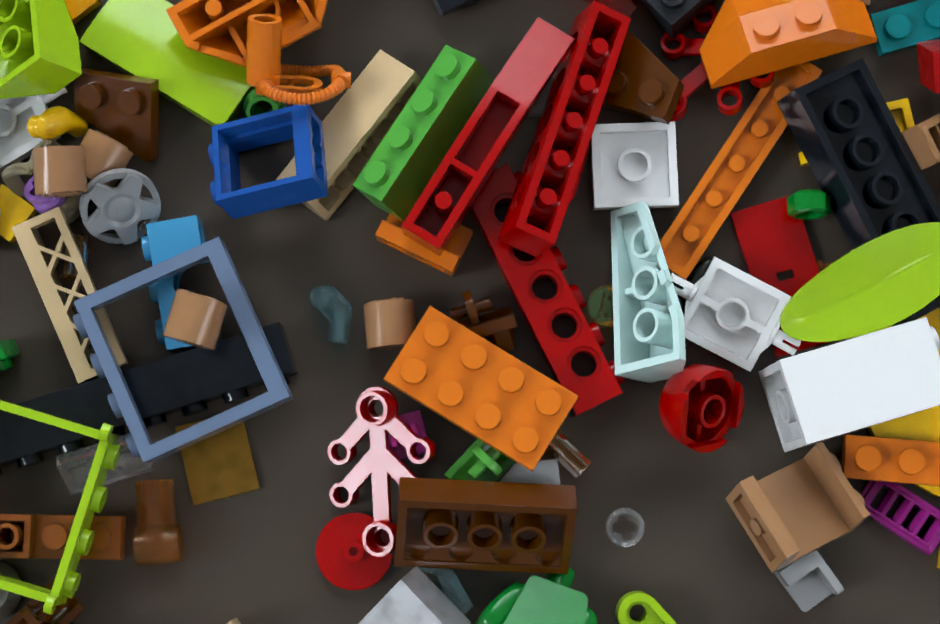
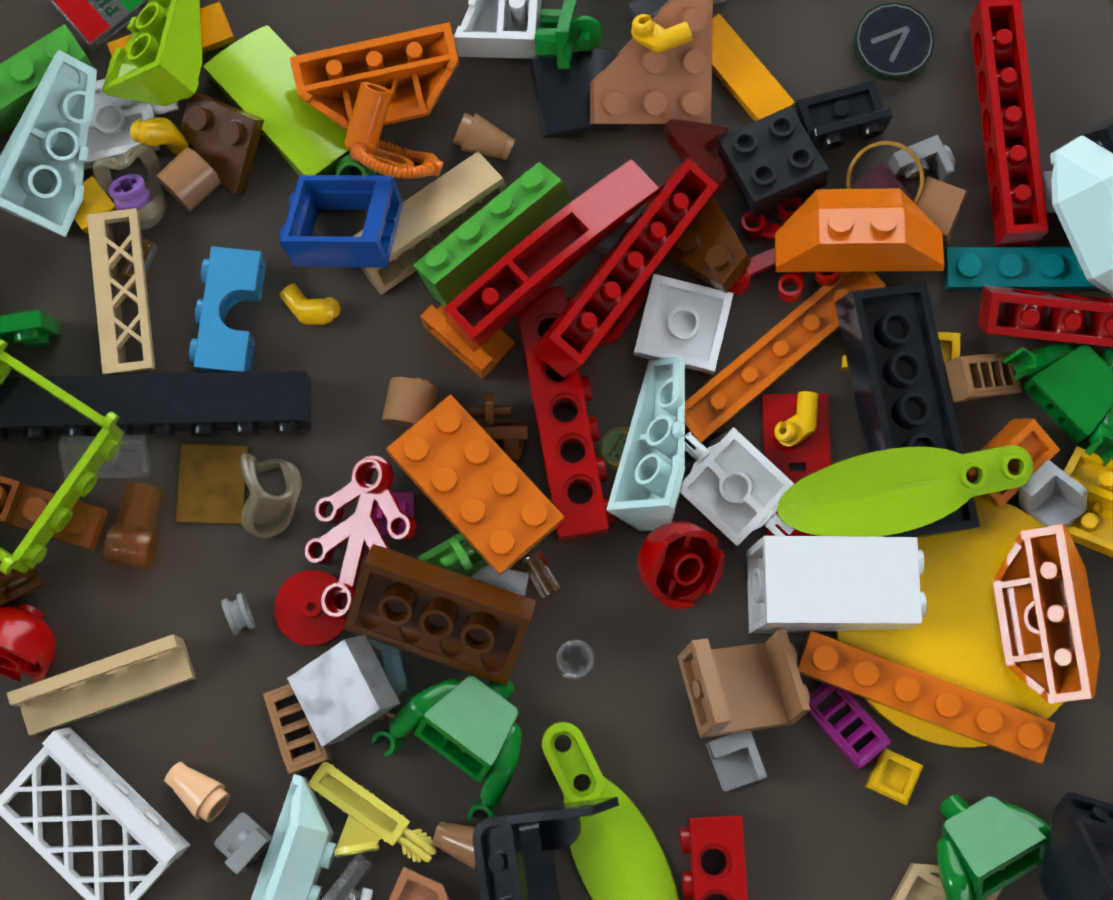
camera: 15 degrees right, 5 degrees down
(59, 171) = (145, 173): medium nougat piece -> none
(107, 365) = (131, 361): sand blue window -> none
(120, 206) = (192, 224): light grey wheel -> none
(195, 319) = (225, 339): medium nougat piece -> none
(263, 257) = (310, 311): none -> yellow arm
(279, 474) = (265, 513): none -> dark tan piece
(284, 579) = (238, 613): none -> light grey bush
(336, 309) = (364, 377): clear light blue arm -> none
(377, 32) = (480, 135): none -> medium nougat cone
(778, 233) = (802, 423): none -> yellow arm
(808, 204) = (837, 405): green tile -> none

